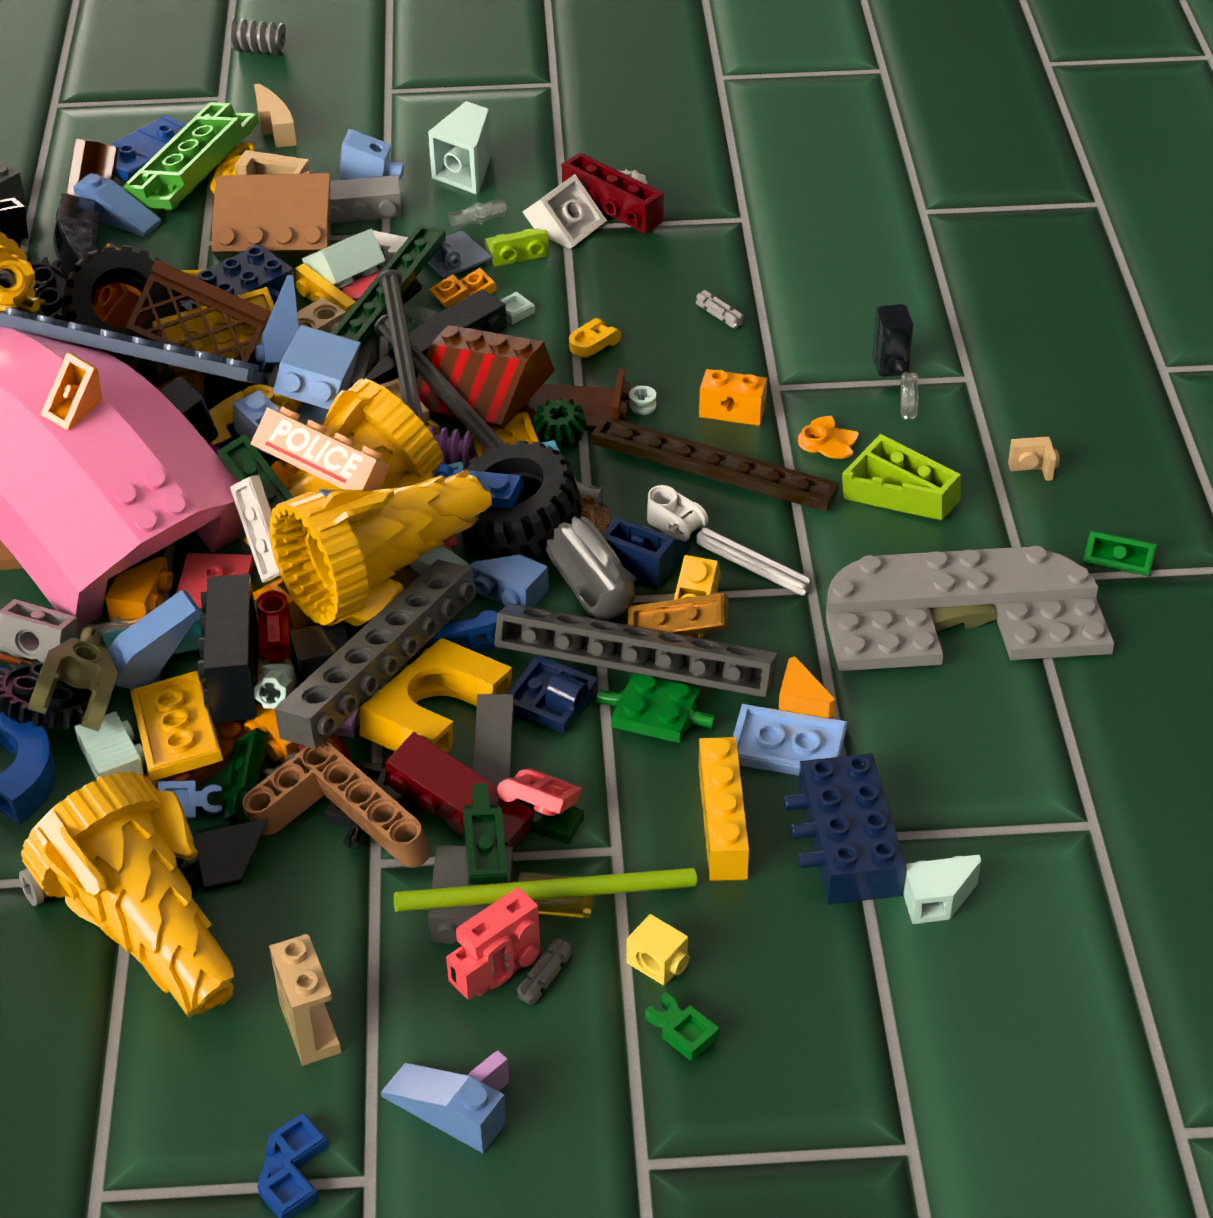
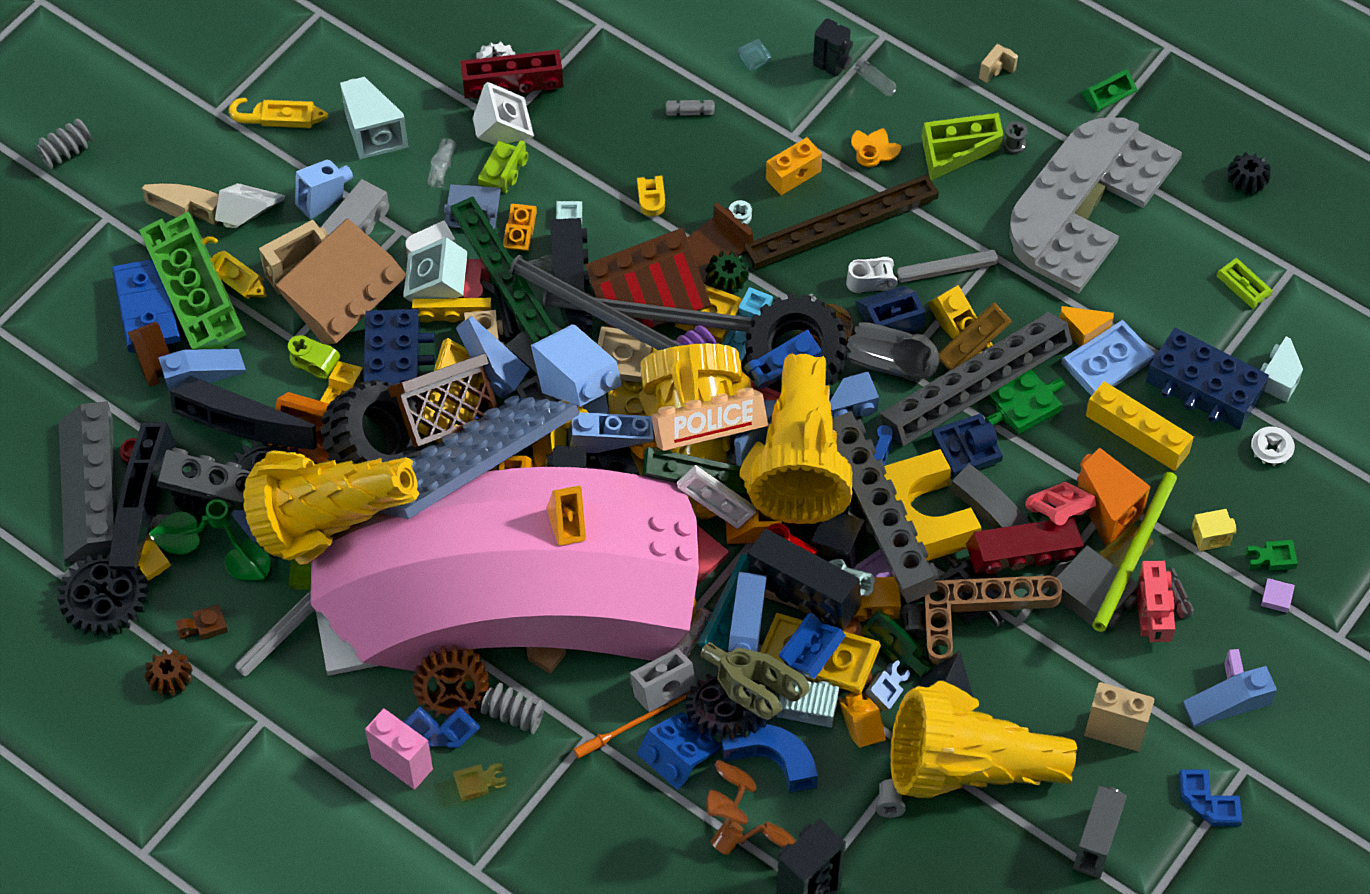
camera: 50 degrees left, 15 degrees up
(138, 1074) = (1099, 831): none -> dark grey brick
(162, 700) = (811, 646): none -> blue bracket
(190, 250) = (312, 356): none -> lime piece
(304, 140) = (243, 203): none -> white slope
(415, 110) = (279, 113): none -> yellow plate
(484, 839) = (1080, 552): dark green hinge -> none
(592, 826) = (1117, 493): none -> orange slope
(636, 1066) = (1277, 595): none -> lavender tile
(823, 929) = (1274, 436): none -> white gear
(830, 313) = (754, 54): none -> clear light blue tile
(964, 517) = (1019, 135): none -> dark grey bush
(1018, 814) = (1241, 285): none -> lime tile
(1160, 710) = (1249, 173): none -> black gear

